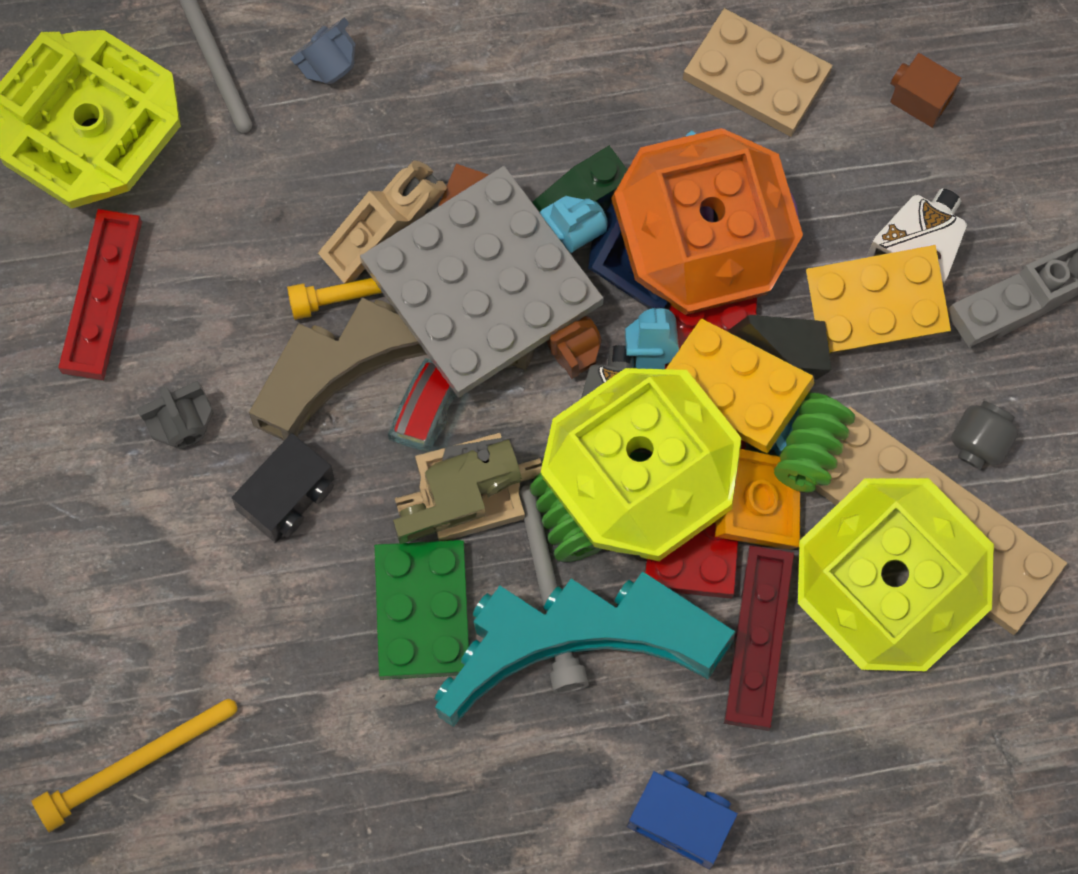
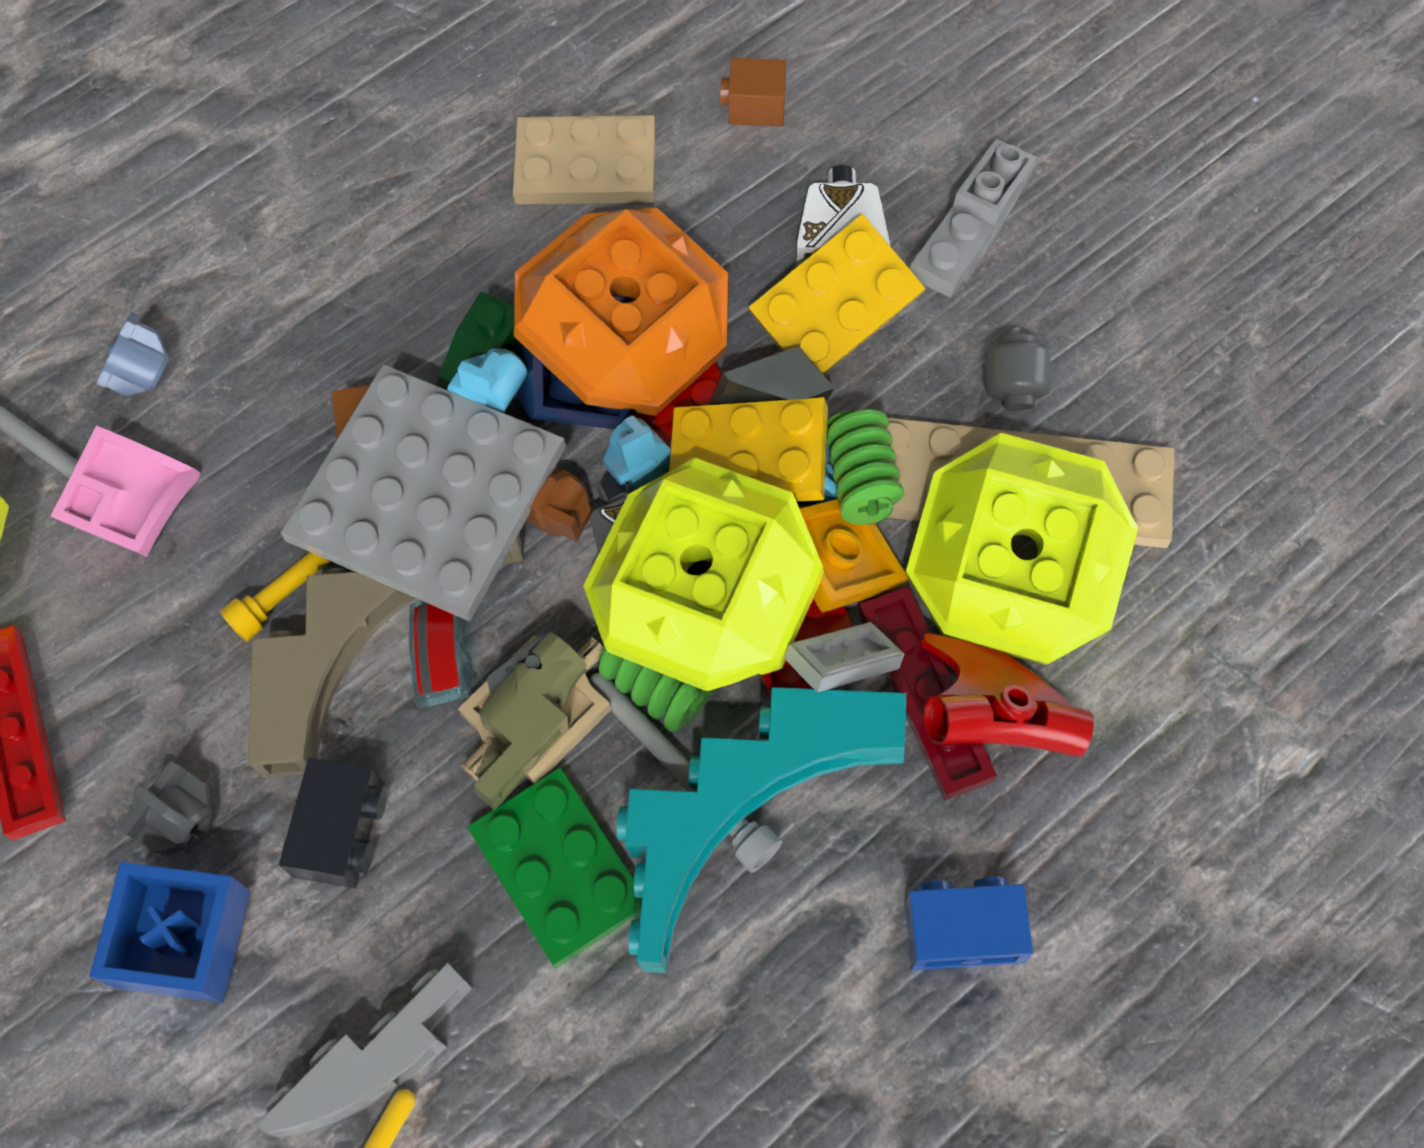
camera: 25 degrees left, 5 degrees down
(135, 502) = (170, 932): none -> blue brick
(202, 673) = (352, 1077): none -> light grey slope
(266, 155) = (123, 491): none -> bright pink plate
(381, 216) = (278, 485): tan plate -> none
(709, 578) = (844, 656): none -> light grey plate
(806, 676) = (1000, 703): none -> red pin

